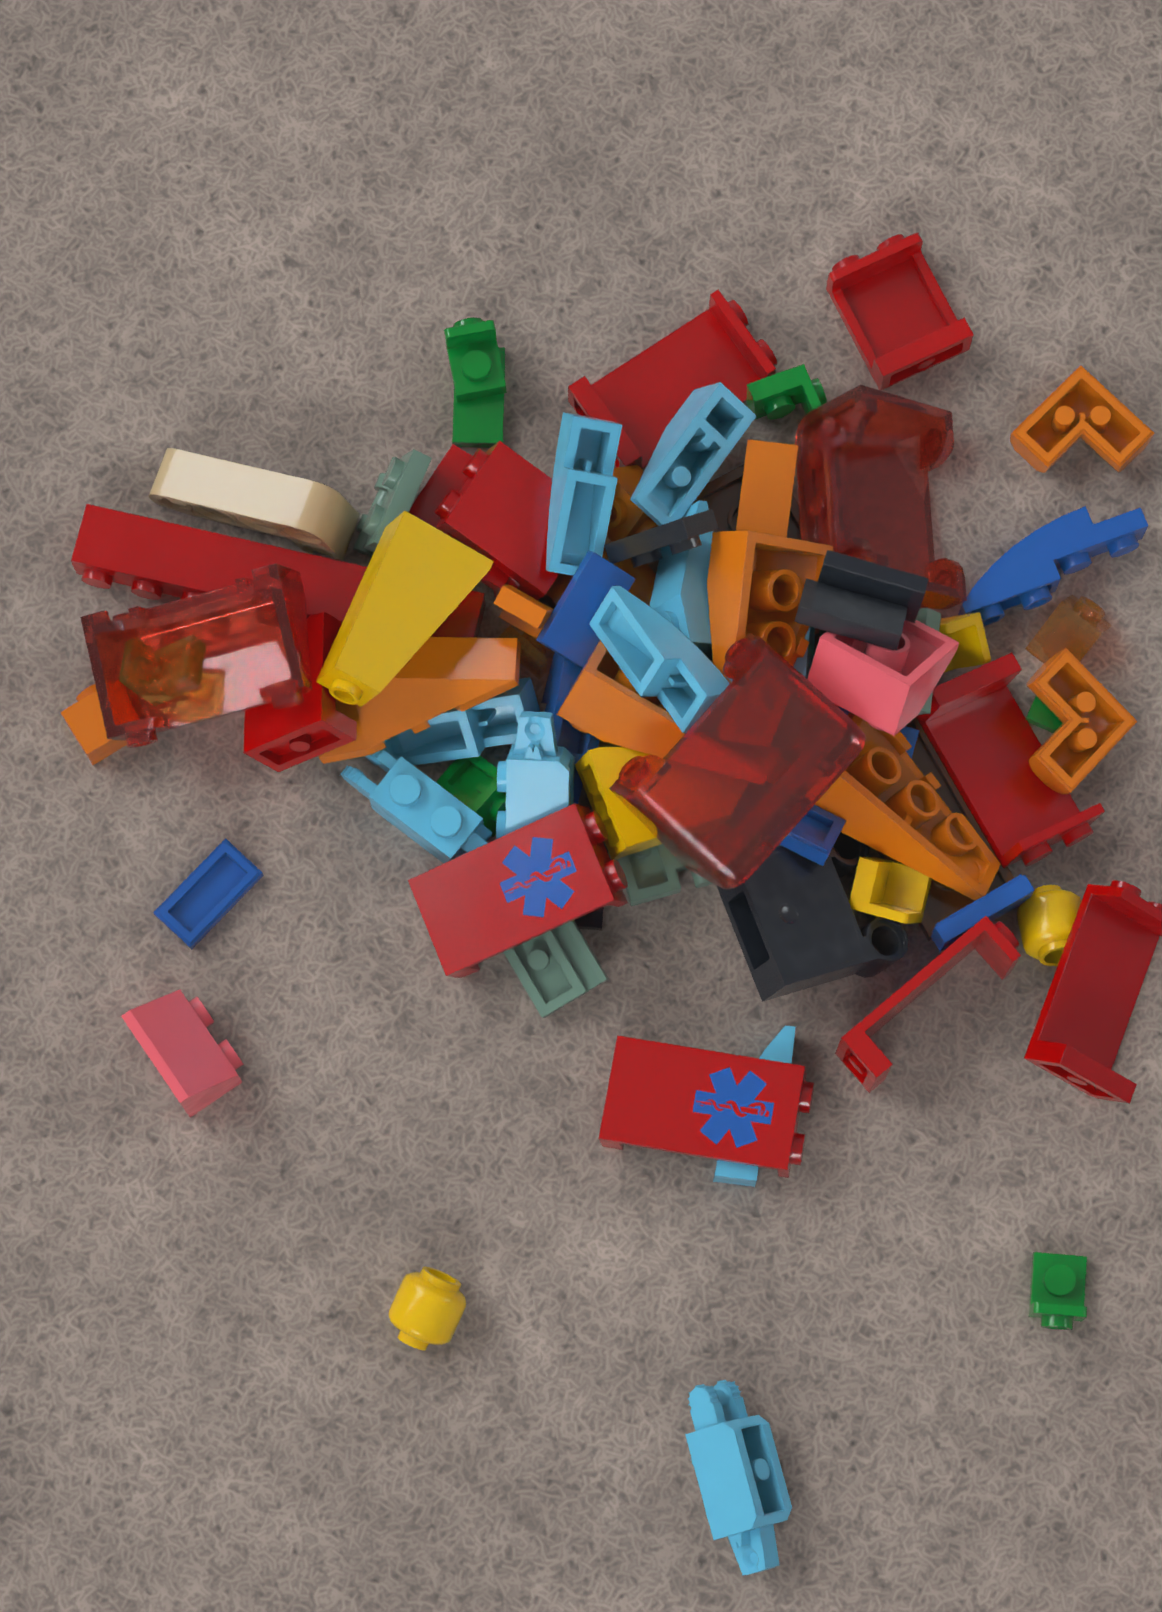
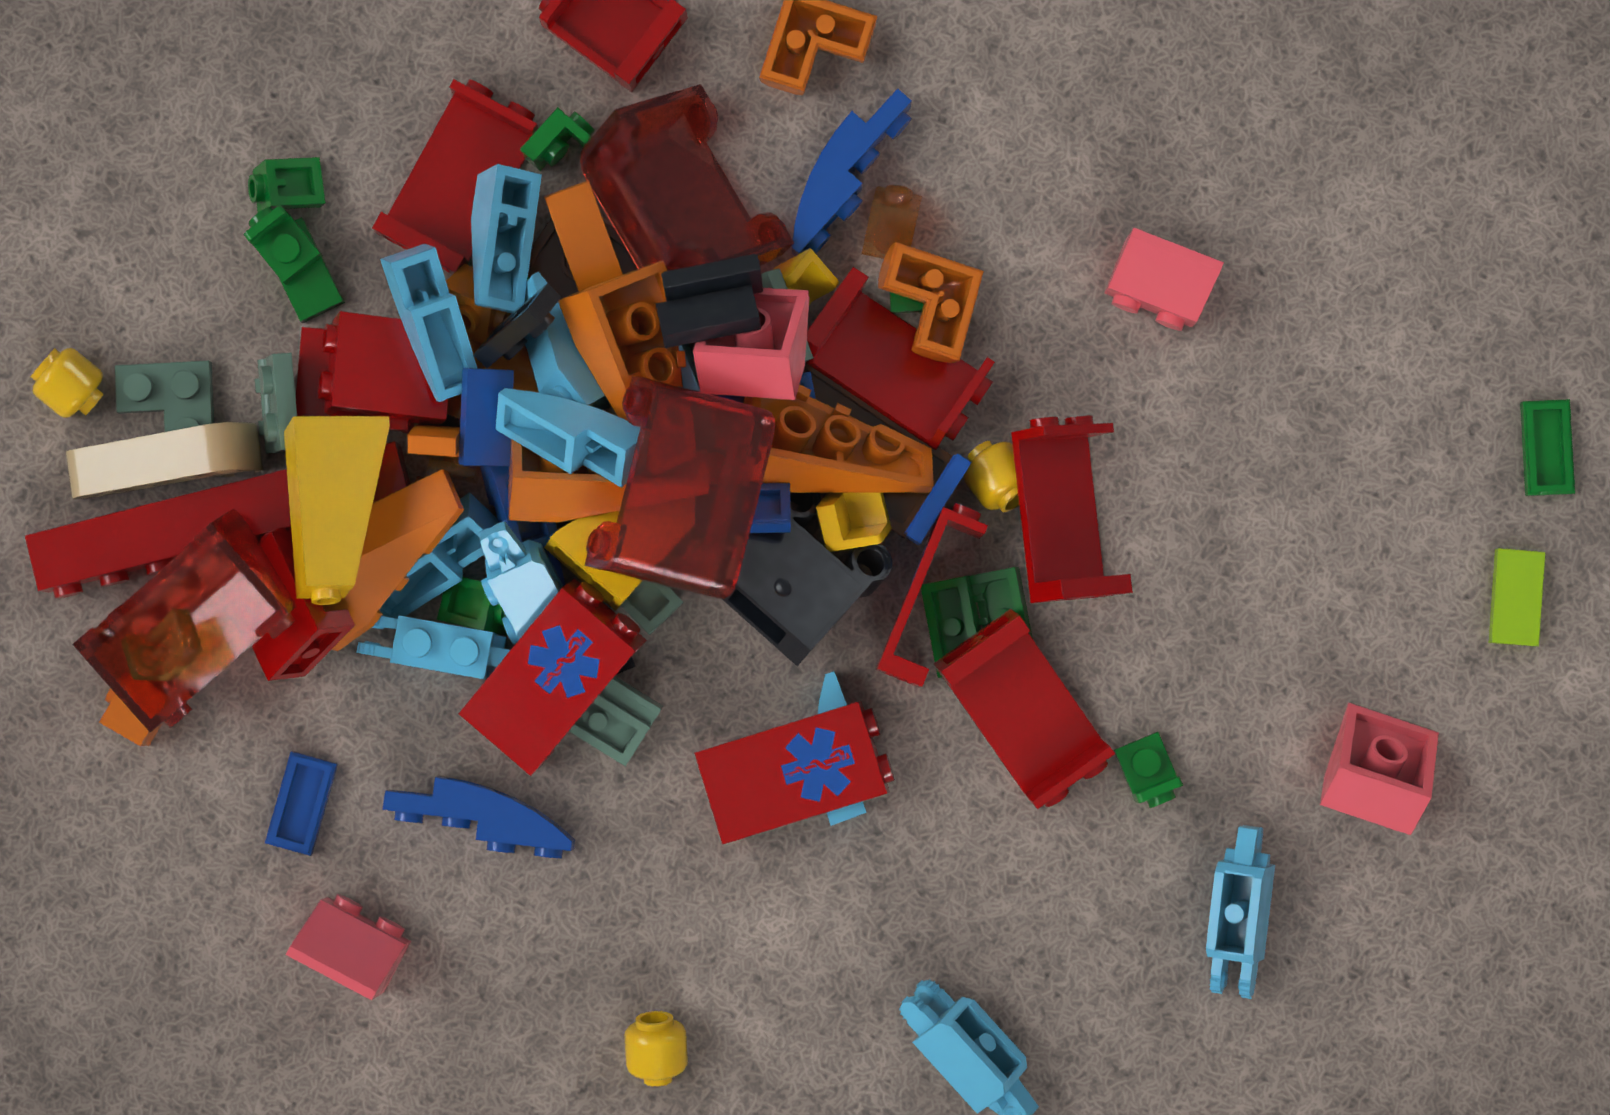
camera: 25 degrees left, 10 degrees up
(202, 387) = (67, 382): none -> yellow head
(292, 440) = (176, 388): none -> sand green plate
(393, 1002) = (500, 817): none -> blue slope
(515, 309) = (287, 183): none -> green bracket
(938, 1050) = (953, 608): none -> green slope
(963, 1163) = (1024, 710): none -> red panel
(1081, 1475) = (1240, 911): none -> medium azure hinge

